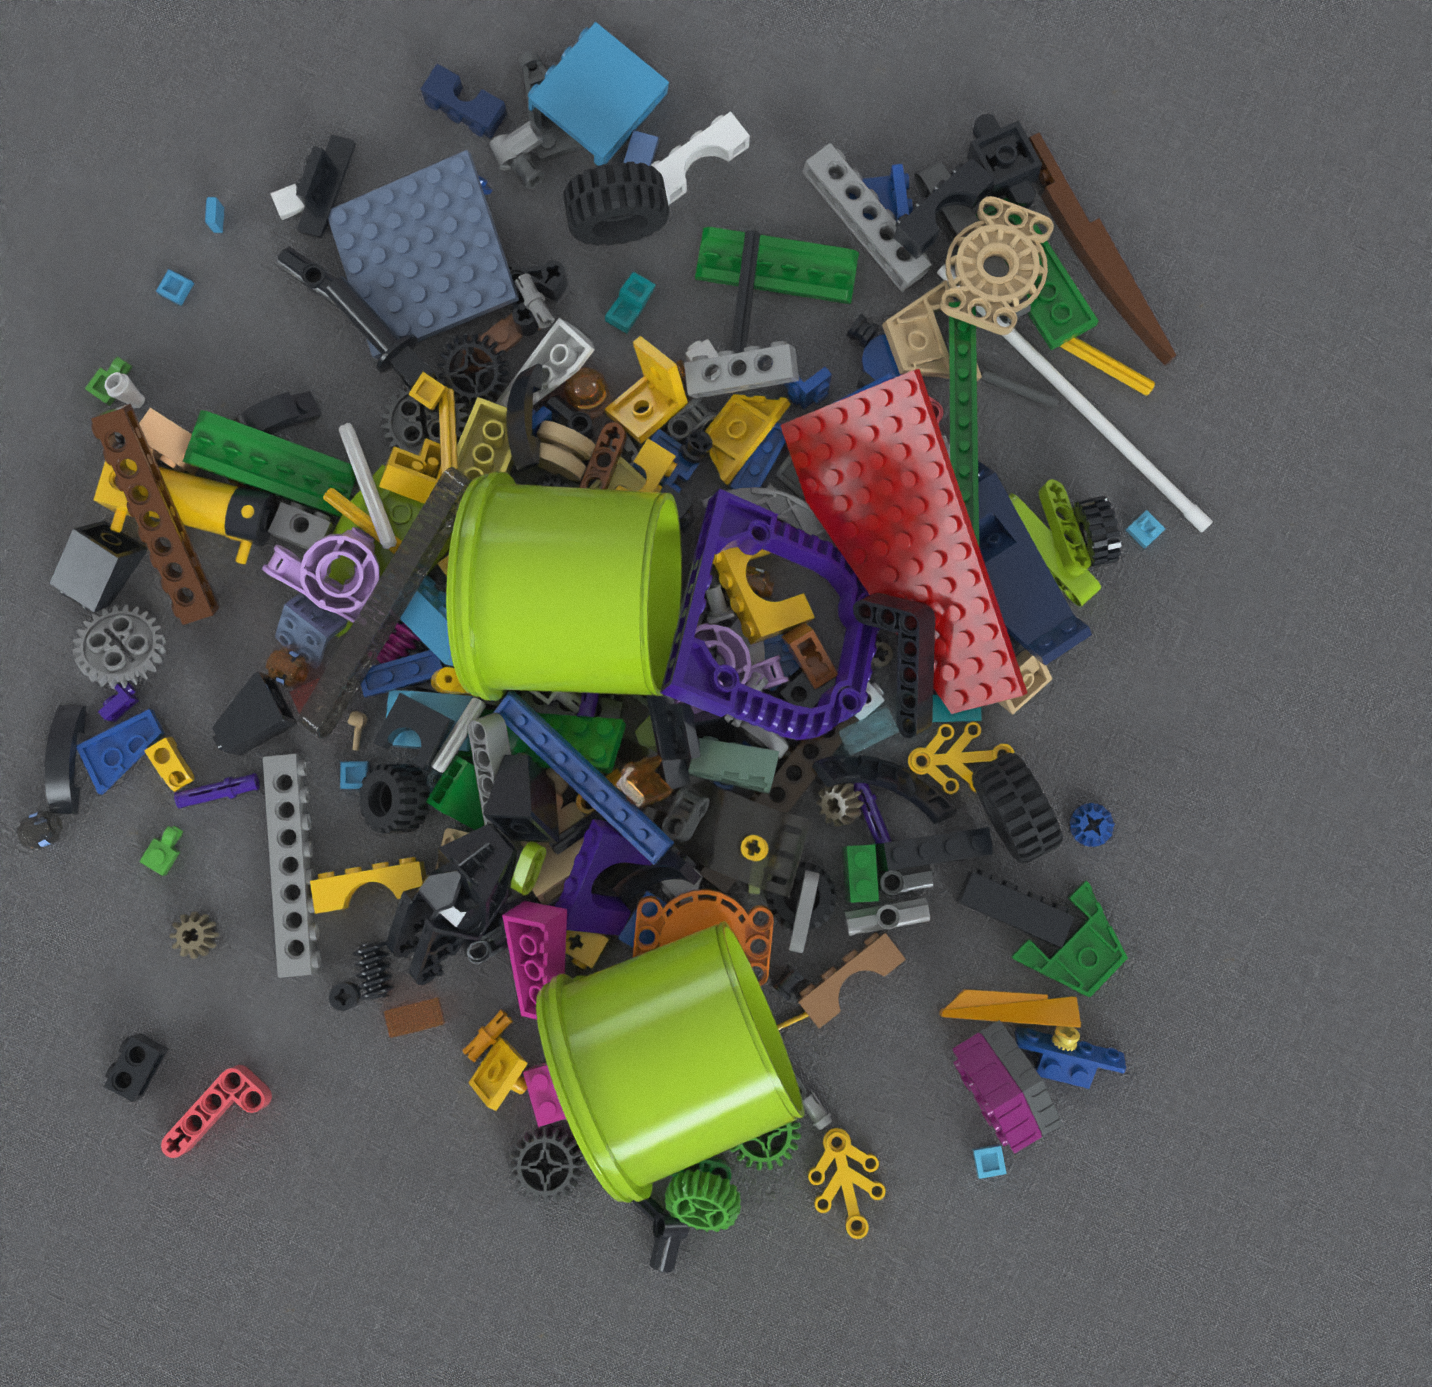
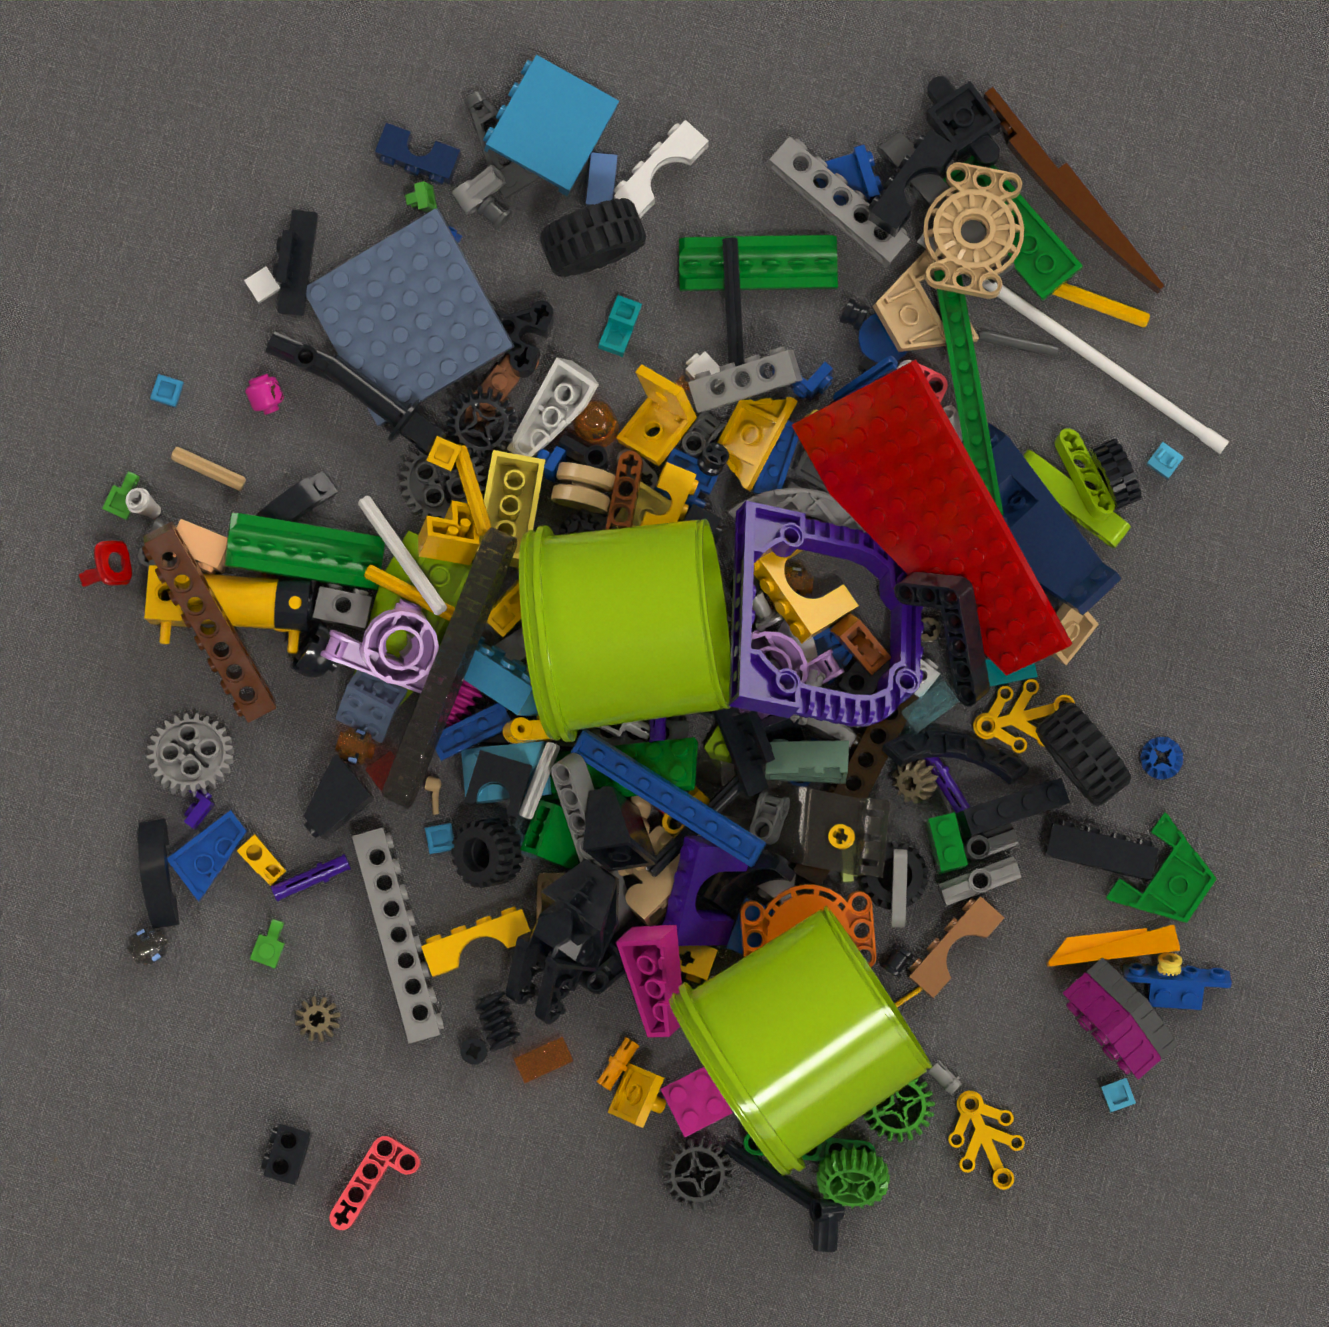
camera: 10 degrees left, 0 degrees up
(70, 449) = (103, 571): none -> red piece
(96, 565) = (150, 680): slope -> none
(199, 369) = (208, 468): none -> tan axle
(214, 214) = (193, 312): dark azure tile -> none
(254, 577) = (310, 661): none -> black cylinder
(267, 305) = (264, 394): none -> dark pink head
(459, 141) = (422, 197): none -> bright green tile
(523, 446) = (539, 464): black slope -> none
(528, 868) = (632, 893): lime beam -> none
(534, 301) = (530, 346): light grey pin -> none
(642, 783) = (725, 794): clear orange bracket -> none

